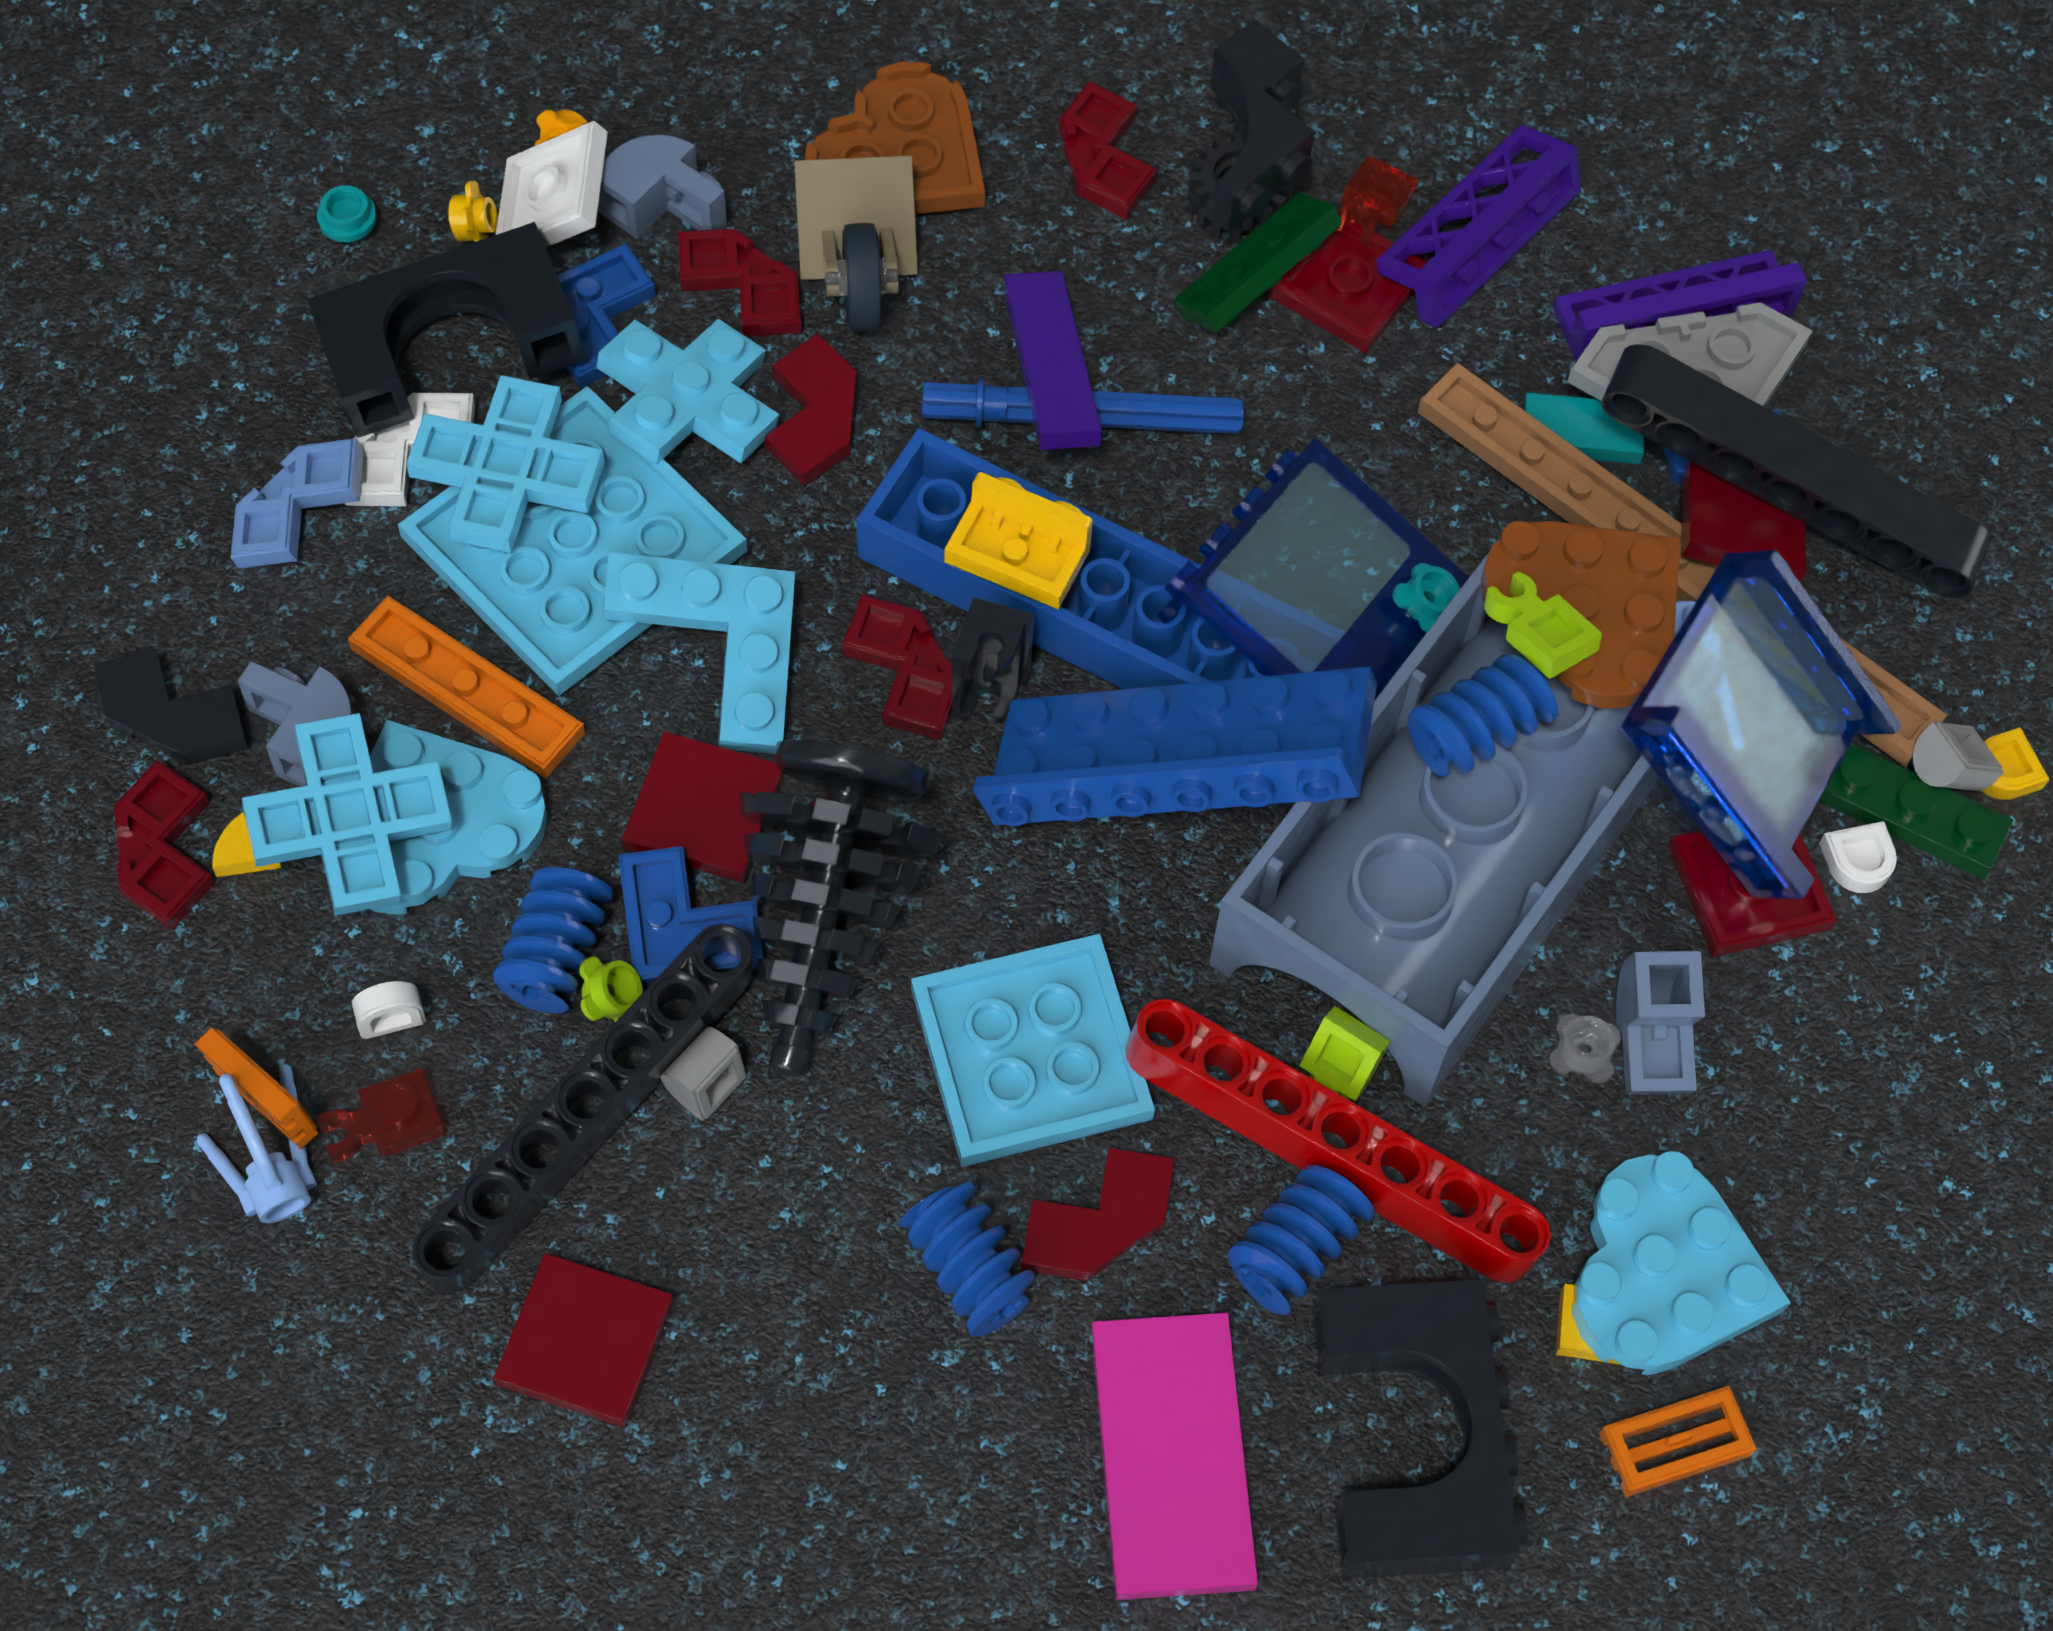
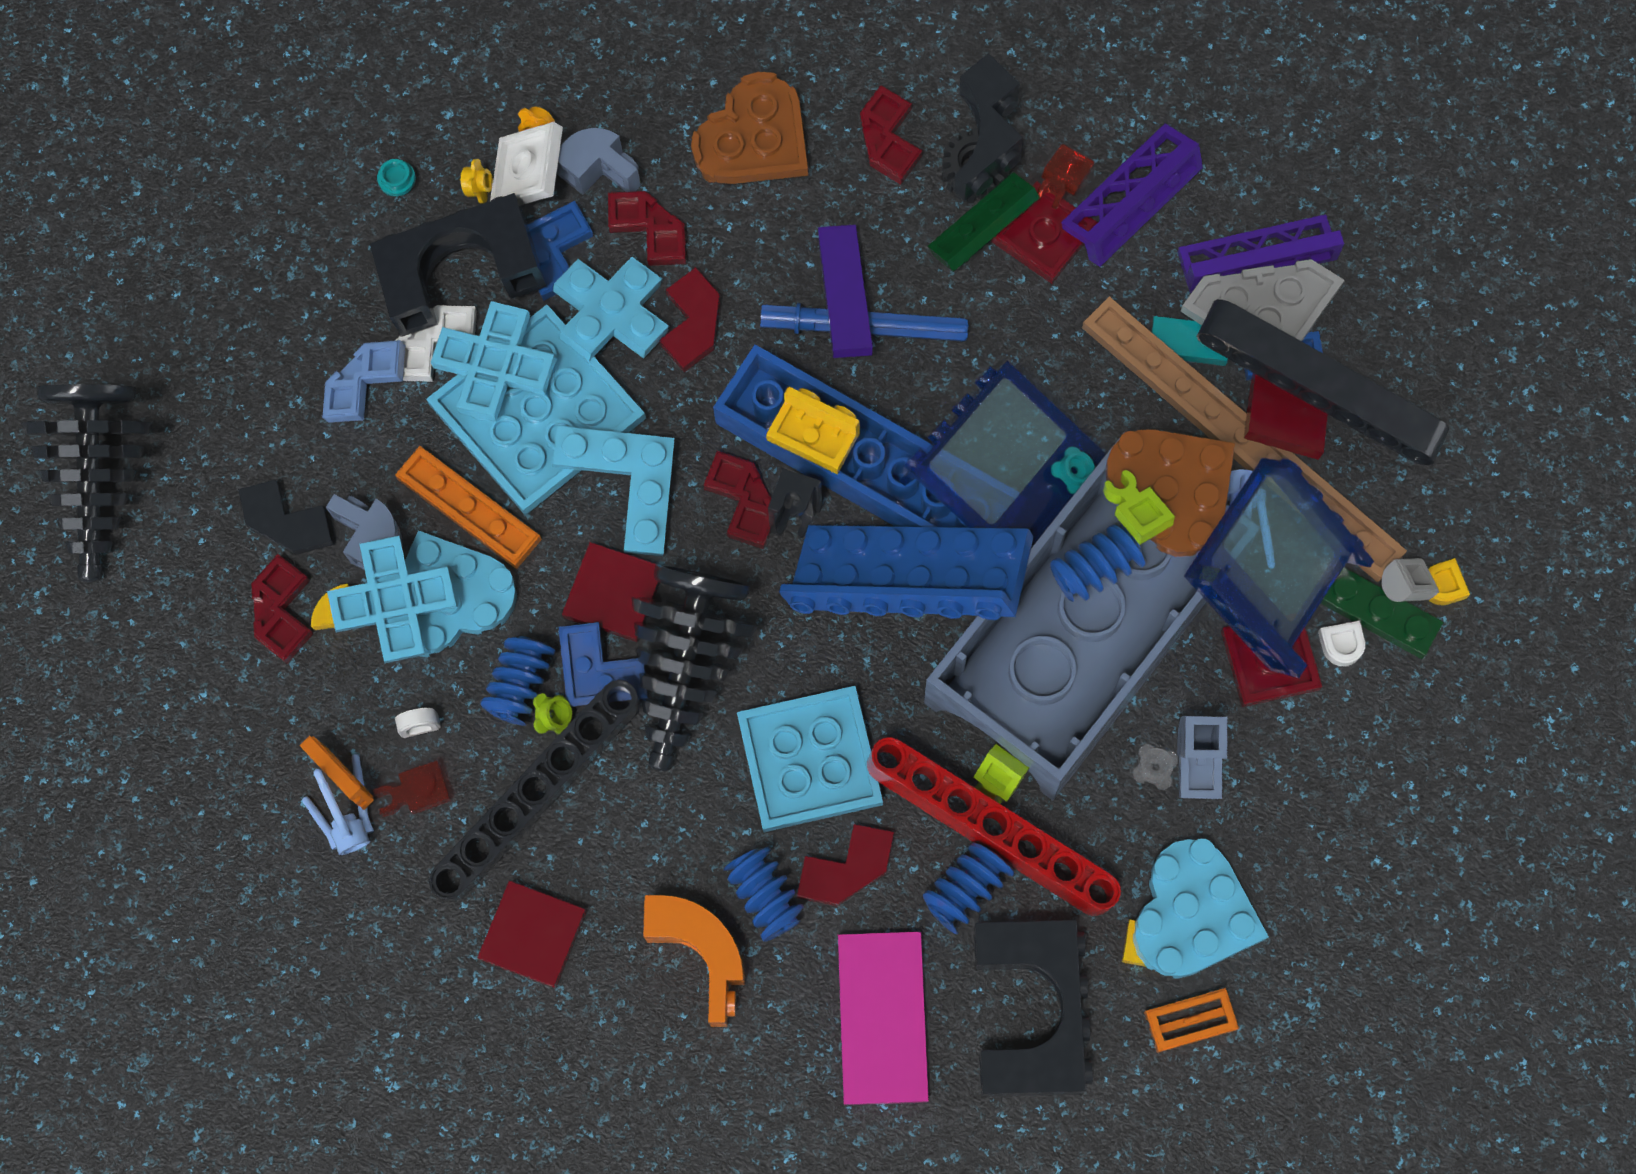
camera: 10 degrees right, 10 degrees up
(705, 1073) = (609, 768): light grey brick -> none
(853, 1314) = (687, 923): none -> orange arch
(856, 230) = (722, 197): dark tan plate -> none

